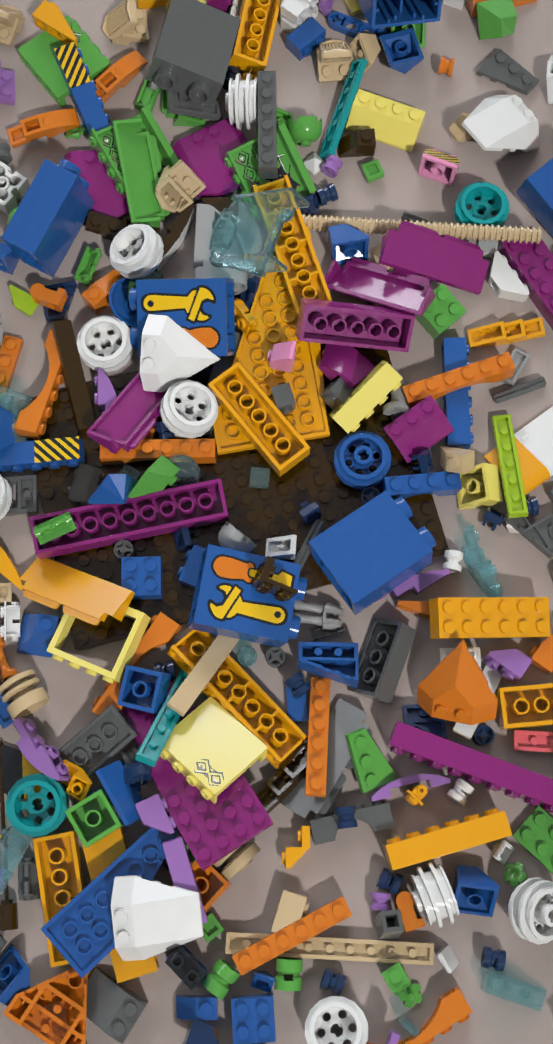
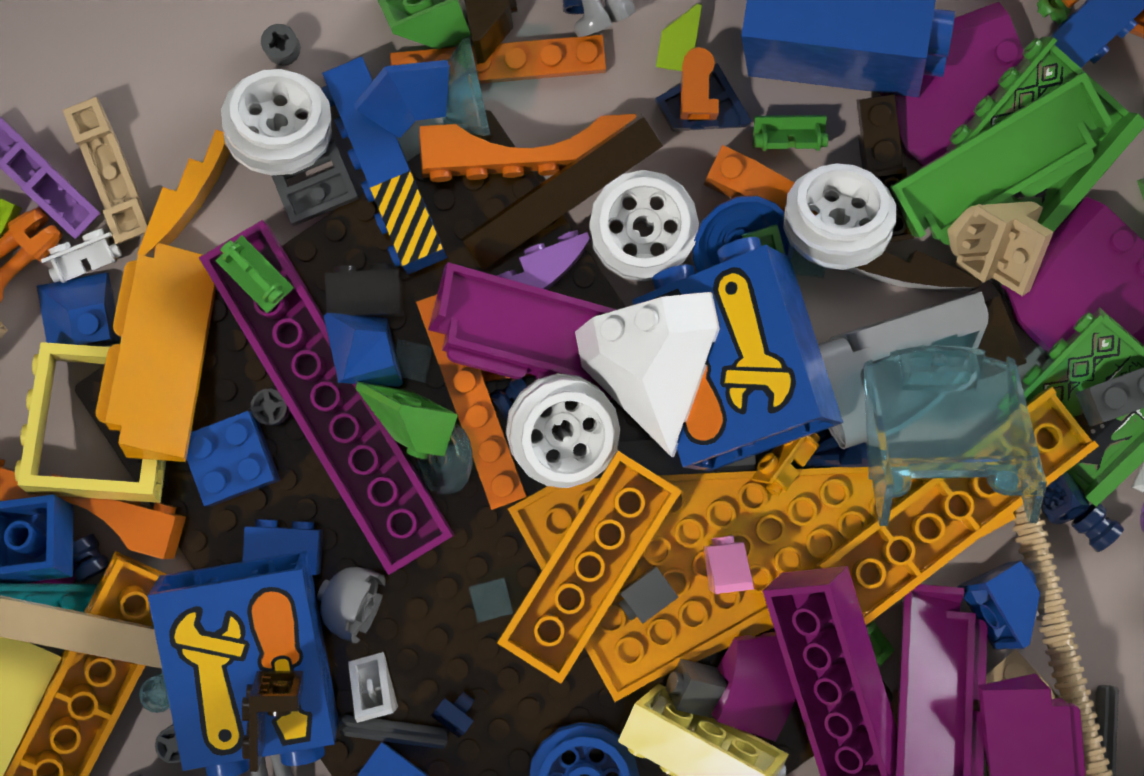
camera: 65 degrees right, 10 degrees up
(183, 539) = (325, 505): dark blue tile -> none

